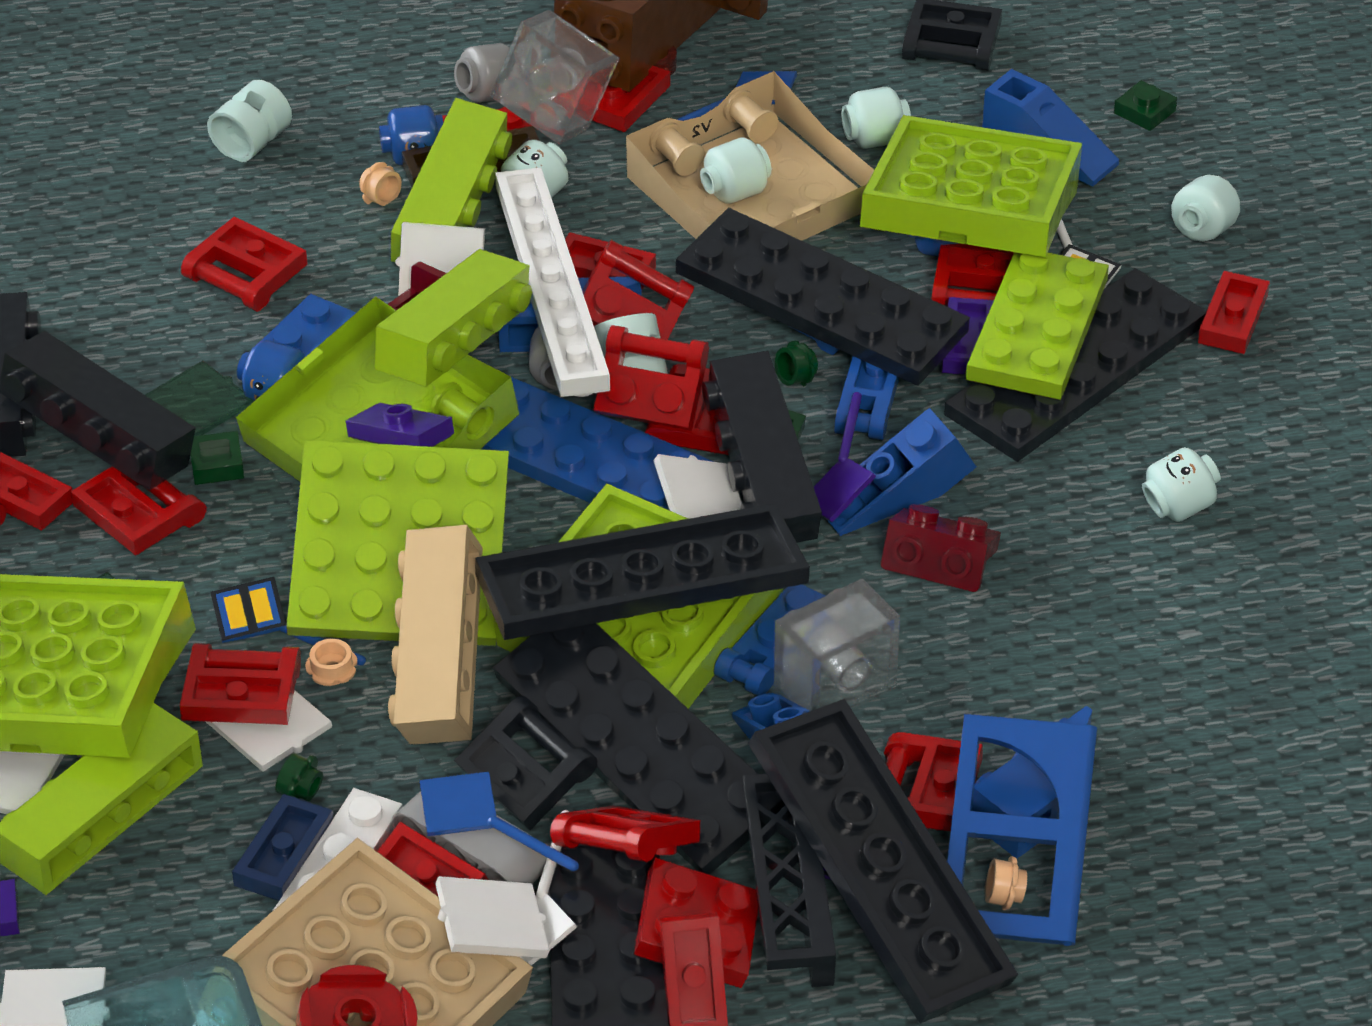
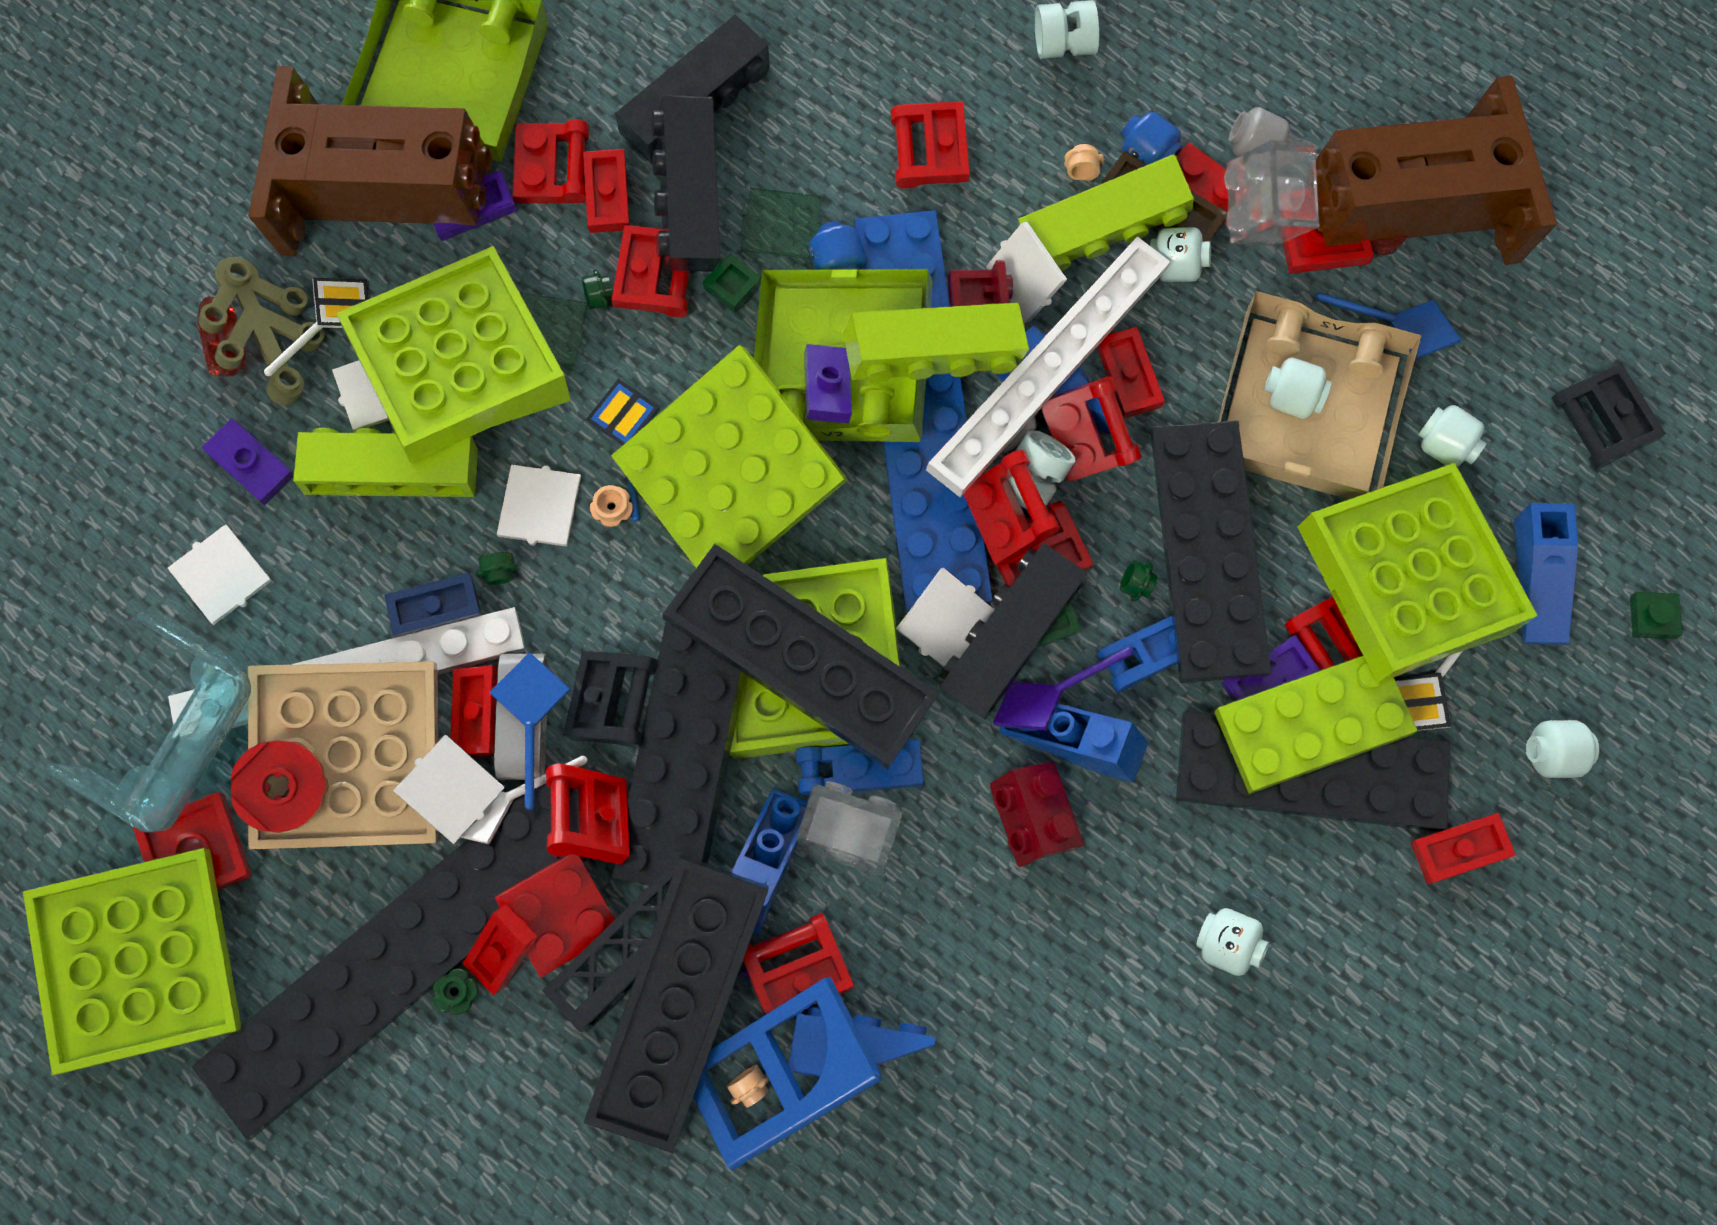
camera: 50 degrees right, 30 degrees up
(107, 552) = (597, 290): none -> dark green plate
(240, 685) = (532, 476): red plate -> none
(436, 636) = (654, 563): tan brick -> none

